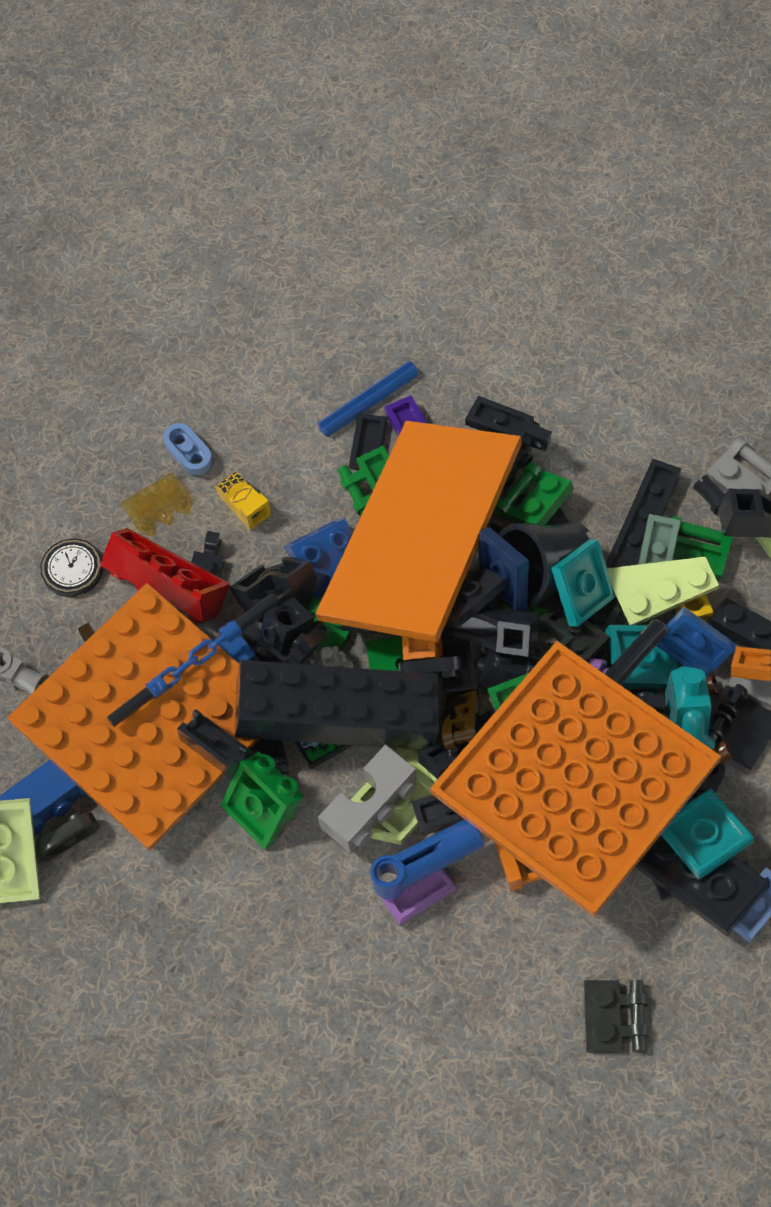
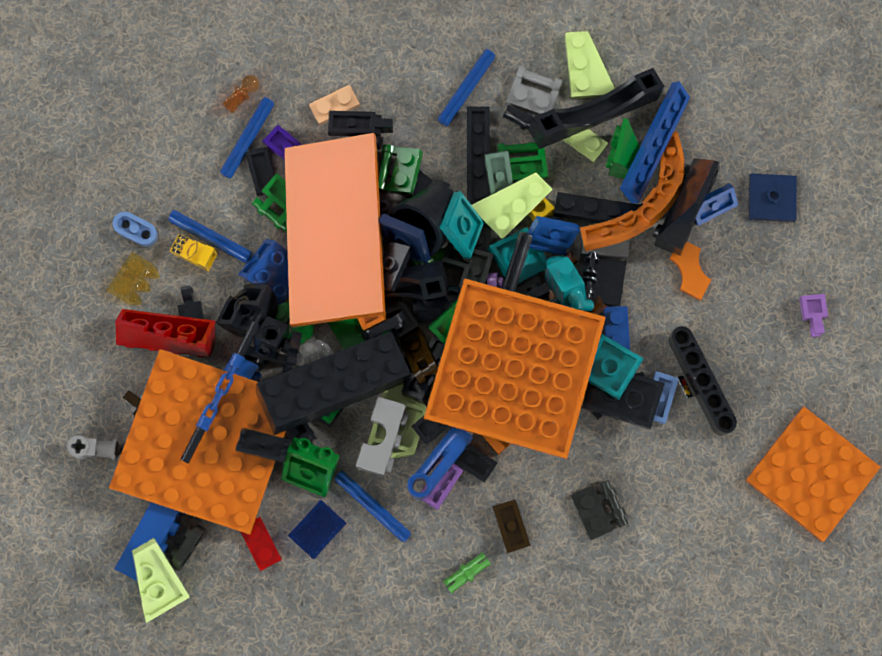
camera: 30 degrees left, 15 degrees up
(71, 567) = (94, 352): tile -> none
(157, 874) = (261, 545): none -> red plate
(235, 883) = (317, 529): none -> clear blue plate
(271, 491) = (210, 236): none -> blue axle
(319, 886) = (372, 506): none -> blue axle
(398, 341) = (249, 84): none -> clear orange pin
(402, 1021) = (467, 572): none -> bright green pin
(474, 884) = (476, 463): none -> black plate
(486, 986) = (511, 526): none -> dark brown plate
(504, 394) = (340, 100): none -> light nougat plate
(662, 439) = (466, 87): none -> blue axle
(738, 789) = (617, 325): none -> blue plate

